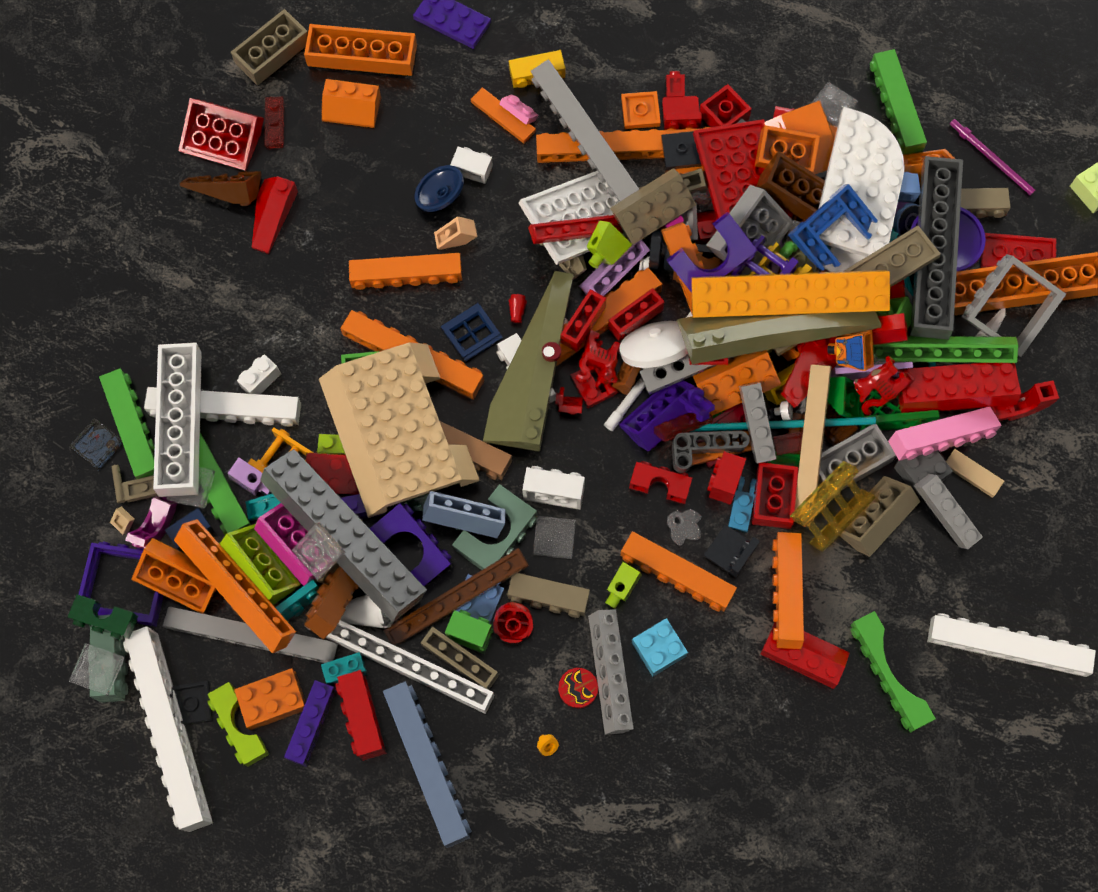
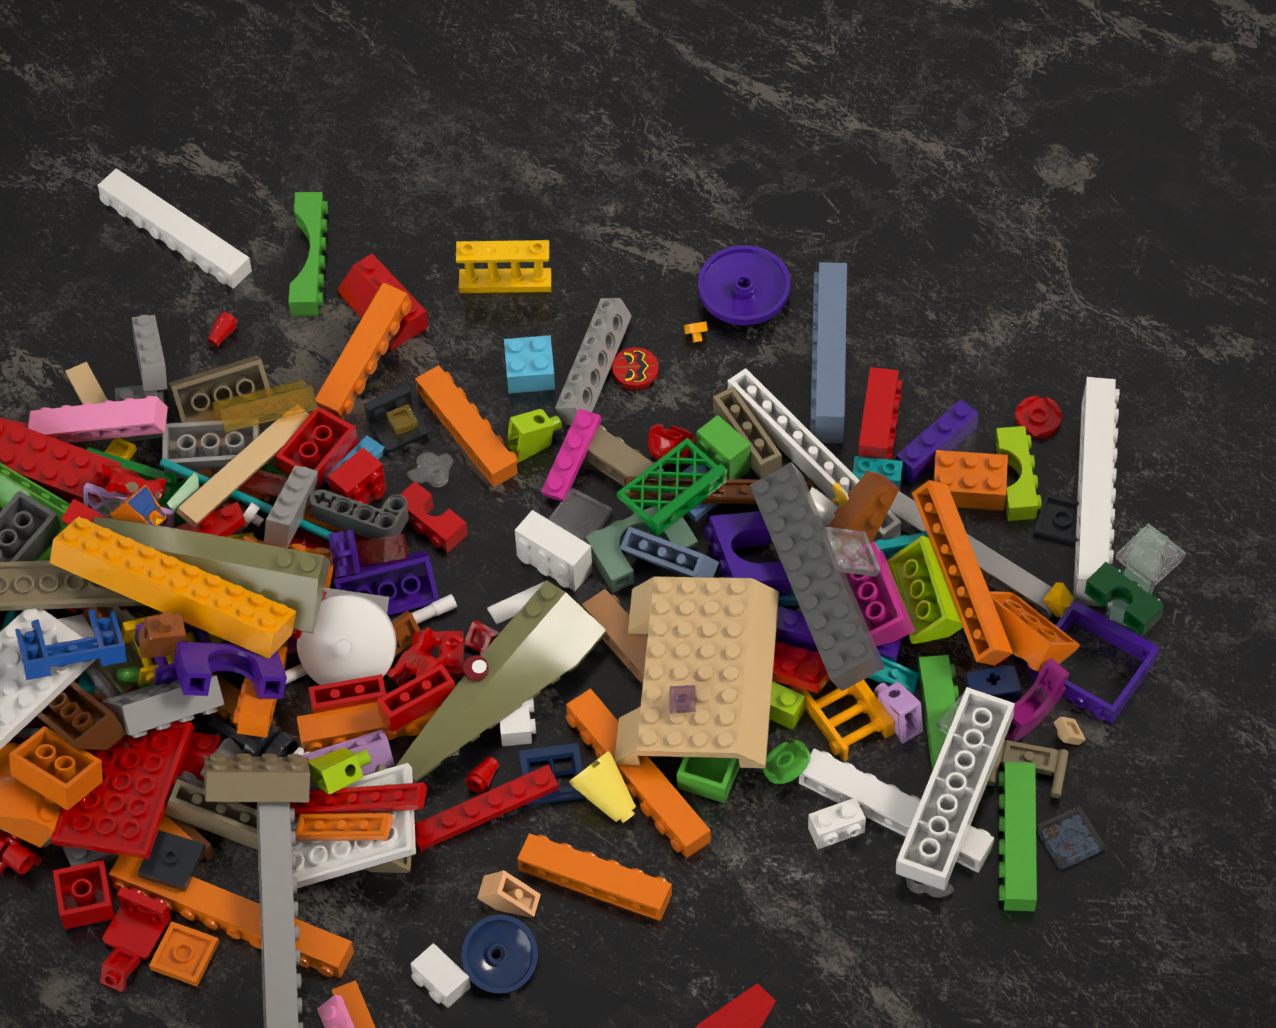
camera: 155 degrees left, 15 degrees down
(162, 618) = (1058, 599): none -> yellow plate
(242, 791) = (1039, 416): none -> red tile
(311, 404) = (786, 762): none -> bright green tile
(358, 623) = (840, 496): none -> yellow helmet
(390, 382) = (682, 699): none -> plate
(429, 327) = (605, 788): none -> light yellow cone
(472, 563) = (682, 503): none -> green fence
(502, 285) = (485, 807): none -> red plate
(526, 802) = (744, 285): none -> dark purple dish
(561, 450) = (511, 606): none -> white sticker
(577, 208) = (344, 827): none -> orange tile
(582, 574) = (571, 455): none -> dark pink plate
(725, 721) = (503, 280): none -> yellow fence
(726, 549) = (402, 419): none -> clear yellow plate
(771, 256) = (160, 635): none -> dark orange torso
(913, 572) = (222, 328): none -> red cone

